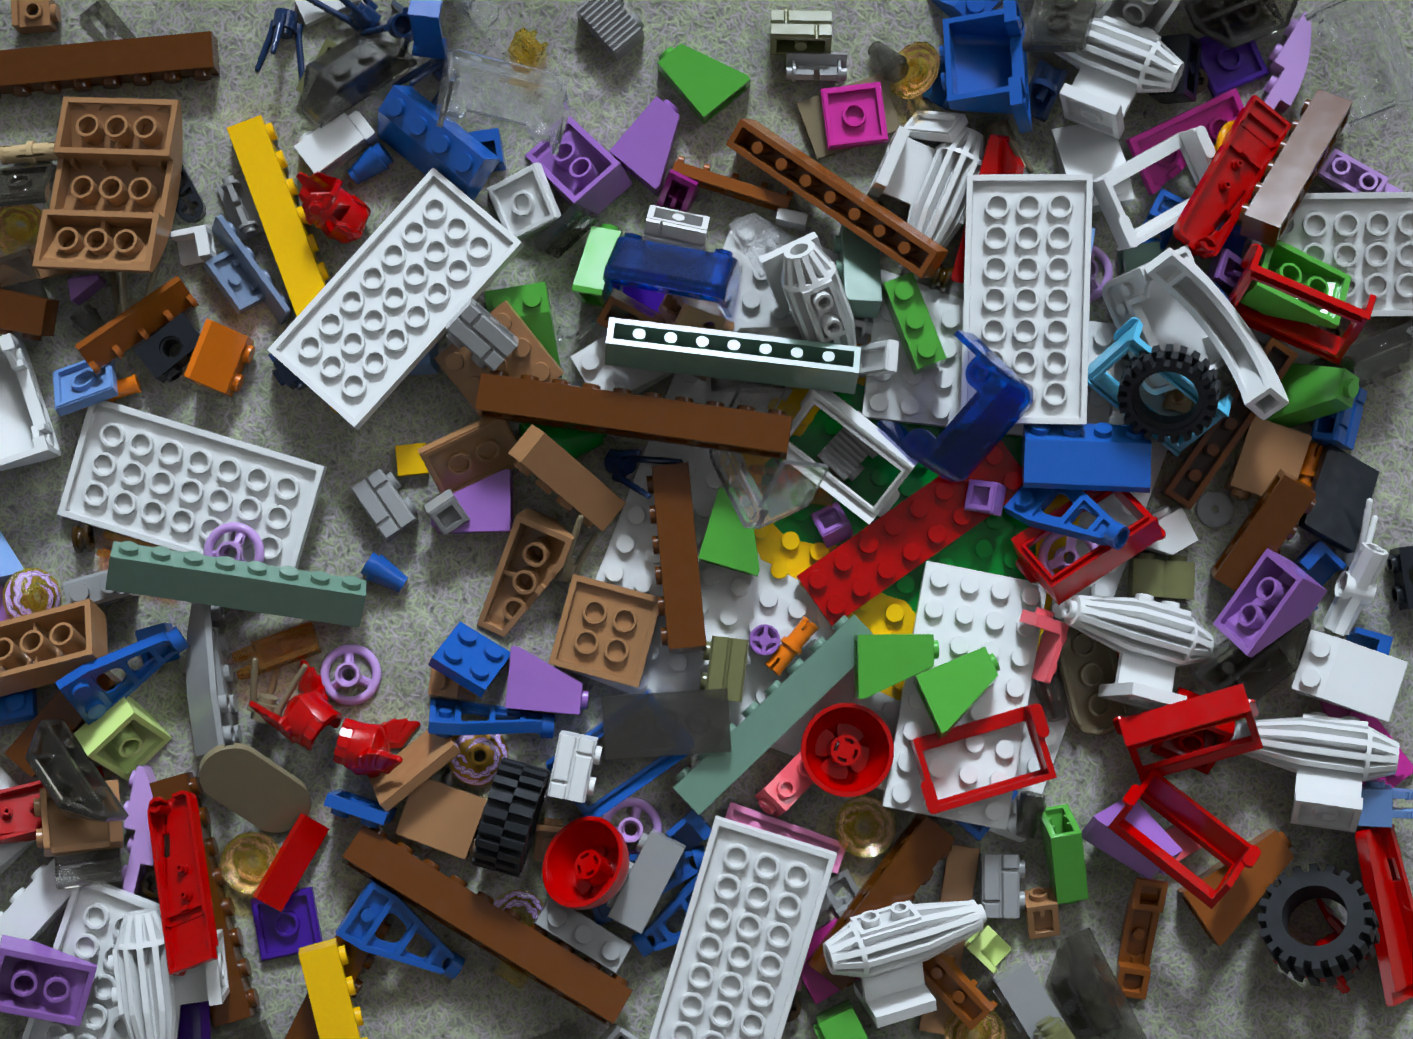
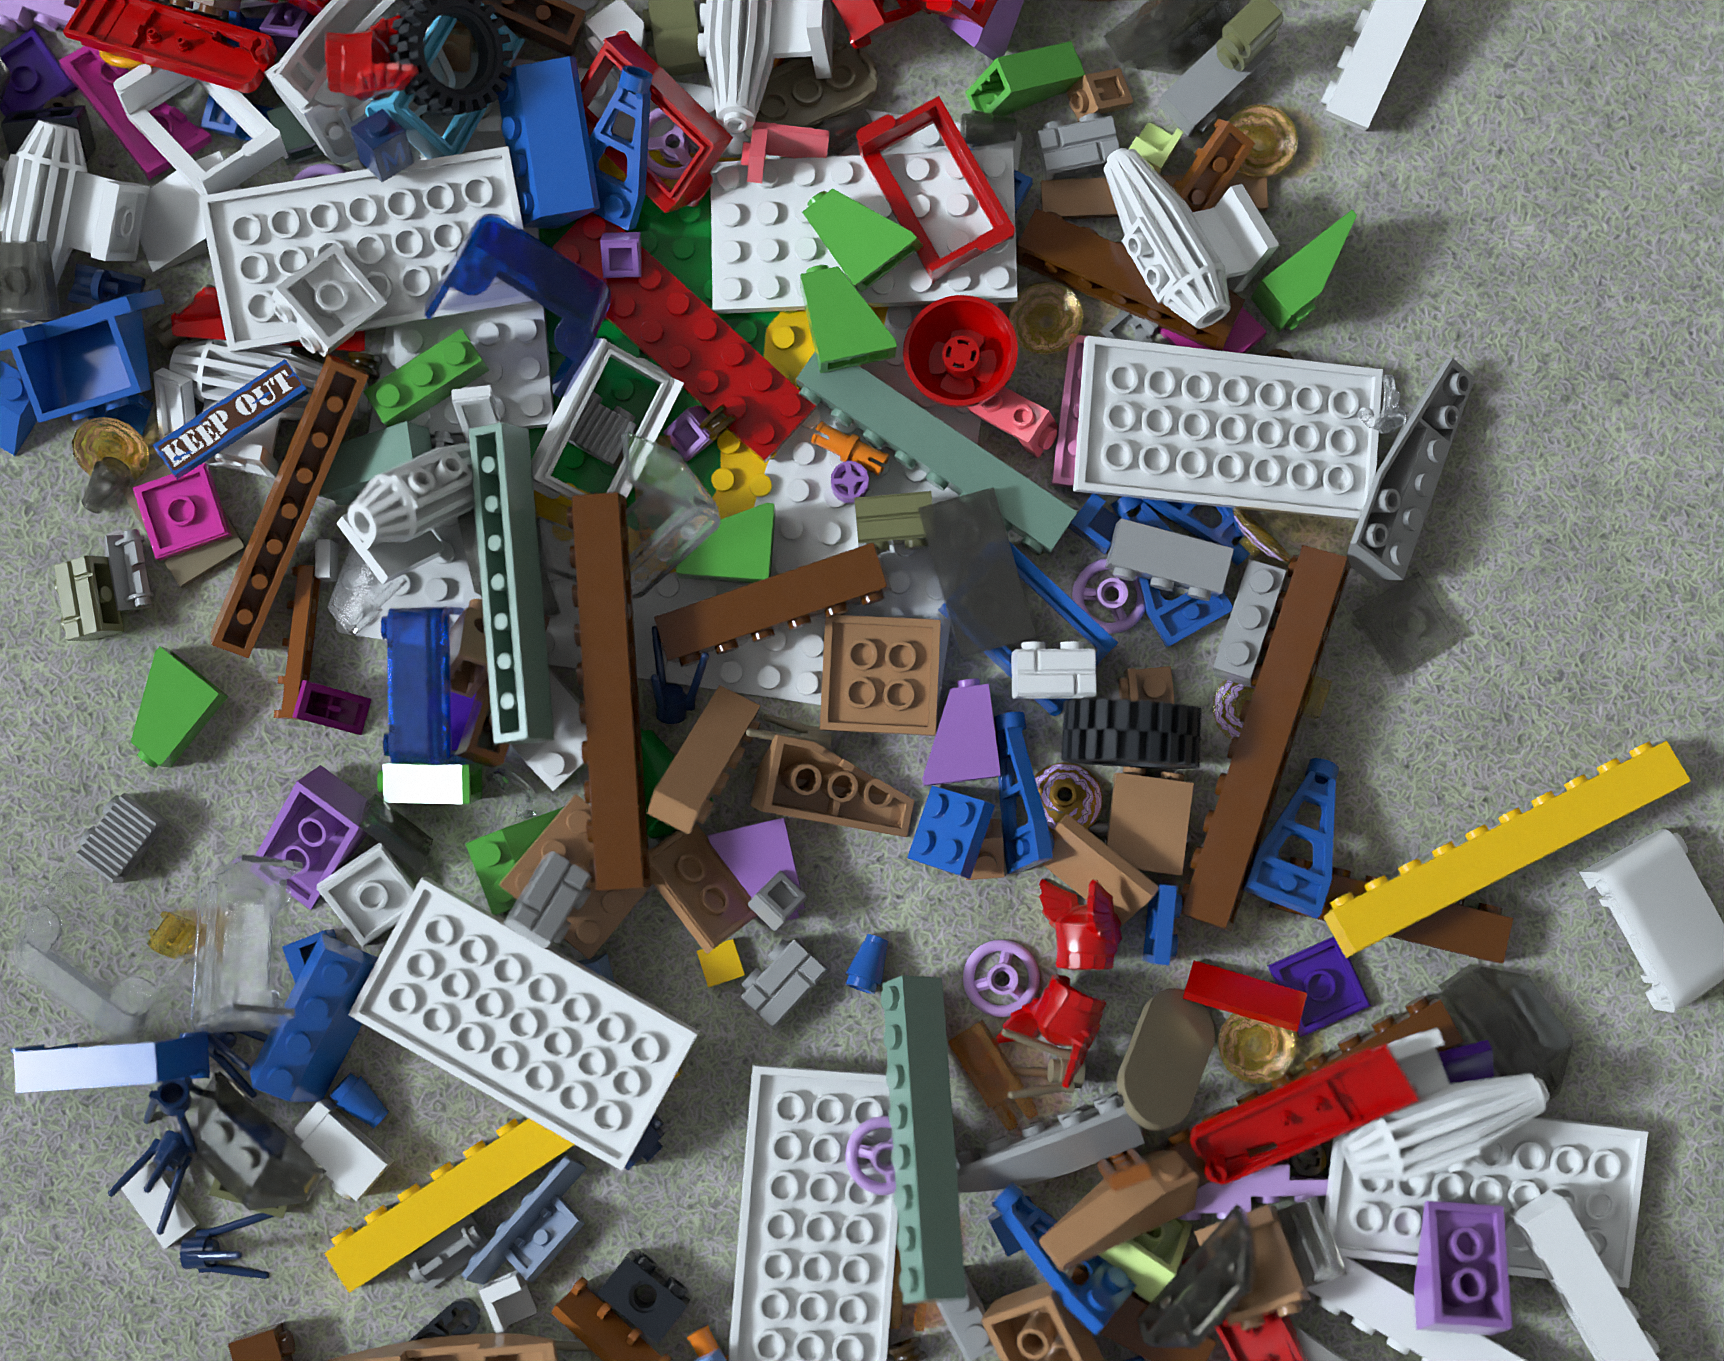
camera: 100 degrees left, 0 degrees up
(150, 729) = (1111, 1218): none -> medium nougat wedge
(173, 733) = (1124, 1169): none -> dark orange tile
(220, 358) = (645, 1230): orange slope -> none
(332, 208) = (425, 1133): red helmet -> none
(586, 863) = (1155, 644): red piece -> none
(648, 957) = (1257, 539): none -> clear yellow dish
(649, 143) = (266, 755): medium lavender slope -> none
(676, 227) = (365, 697): white brick -> none
(832, 544) = (717, 422): none -> dark brown bush
(911, 166) = (230, 419): none -> tile
(988, 258) = (327, 300): none -> white plate
(1103, 324) = (382, 145): none -> dark blue brick
(1172, 320) = (361, 63): none -> red helmet

